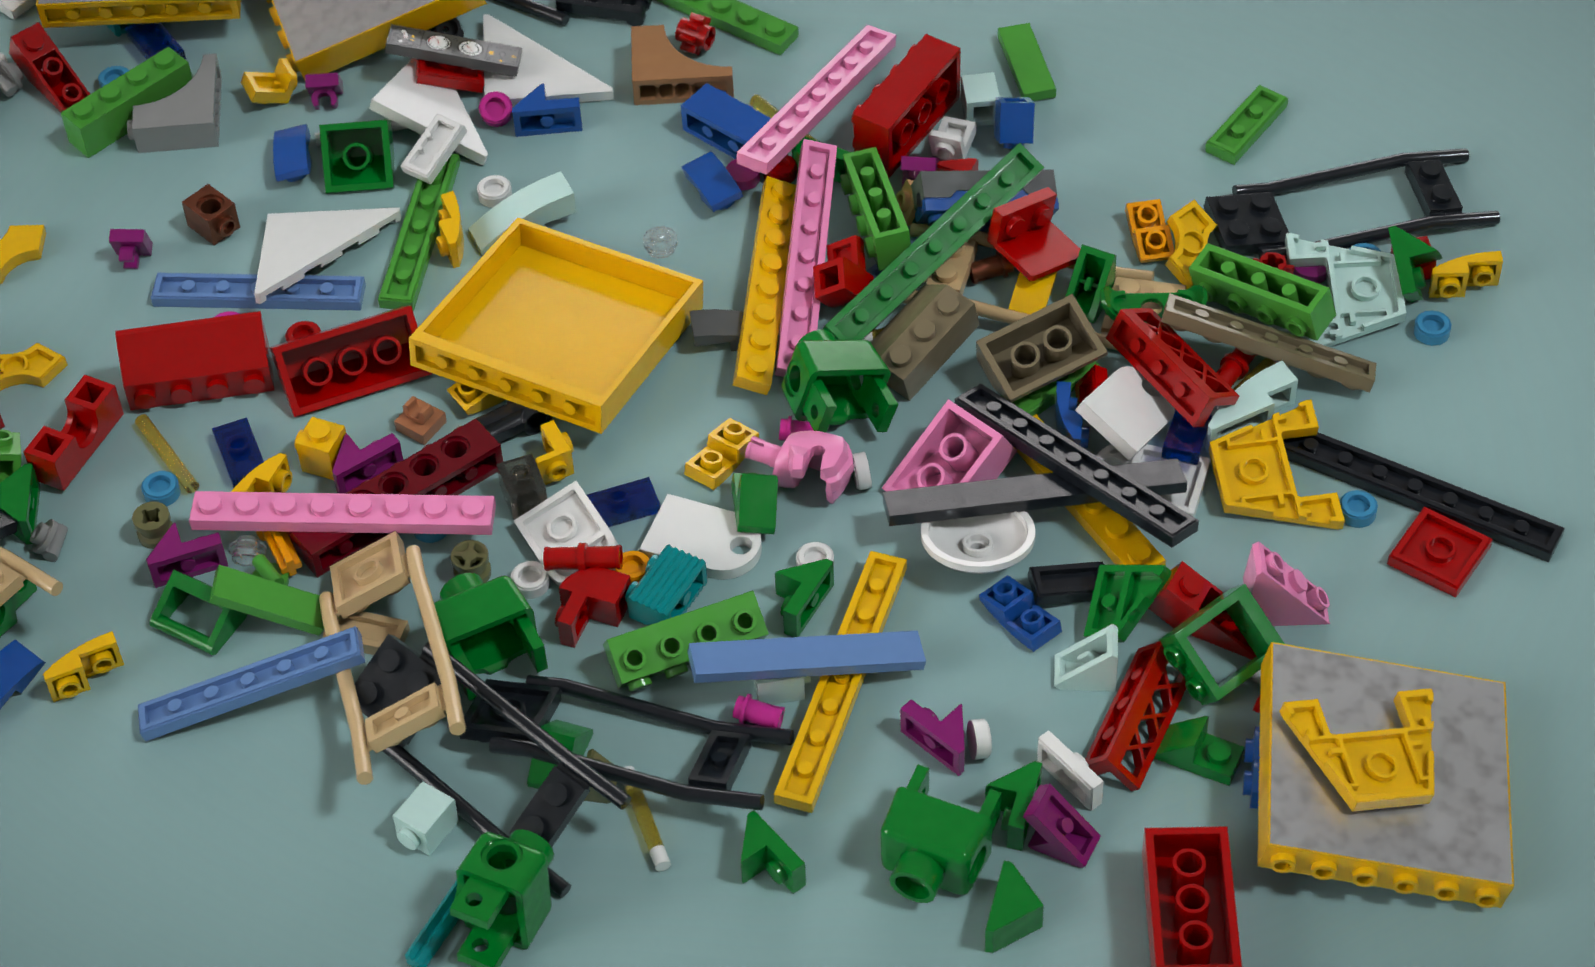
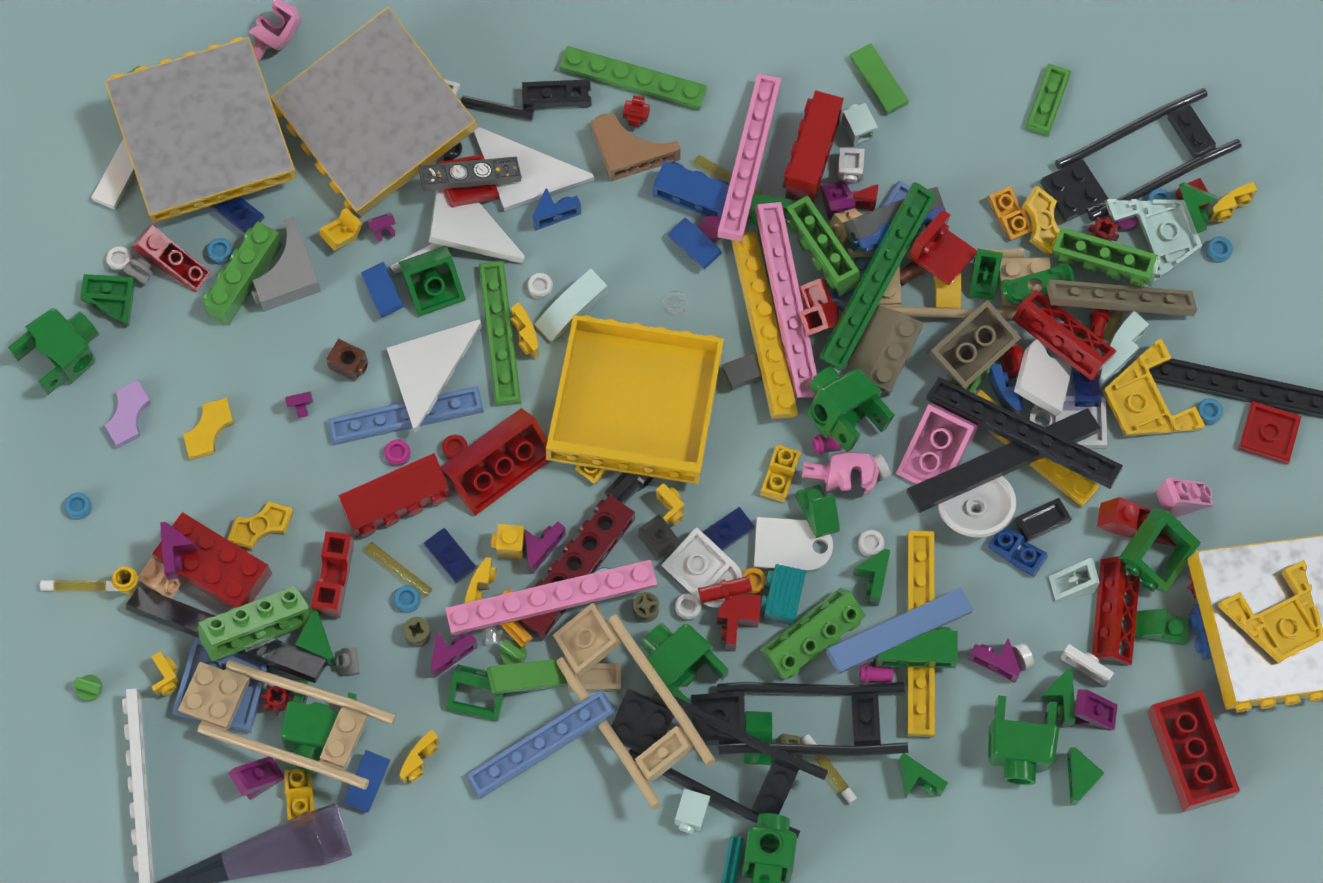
camera: 20 degrees left, 20 degrees up
(419, 420) = (564, 498): nougat tile -> none
(433, 148) = (488, 265): white plate -> none
(496, 109) = (515, 213): dark pink tile -> none
(834, 690) = (930, 650): none -> green slope
(1014, 121) = (891, 141): blue brick -> none
(1124, 596) = (1084, 529): green wing -> none

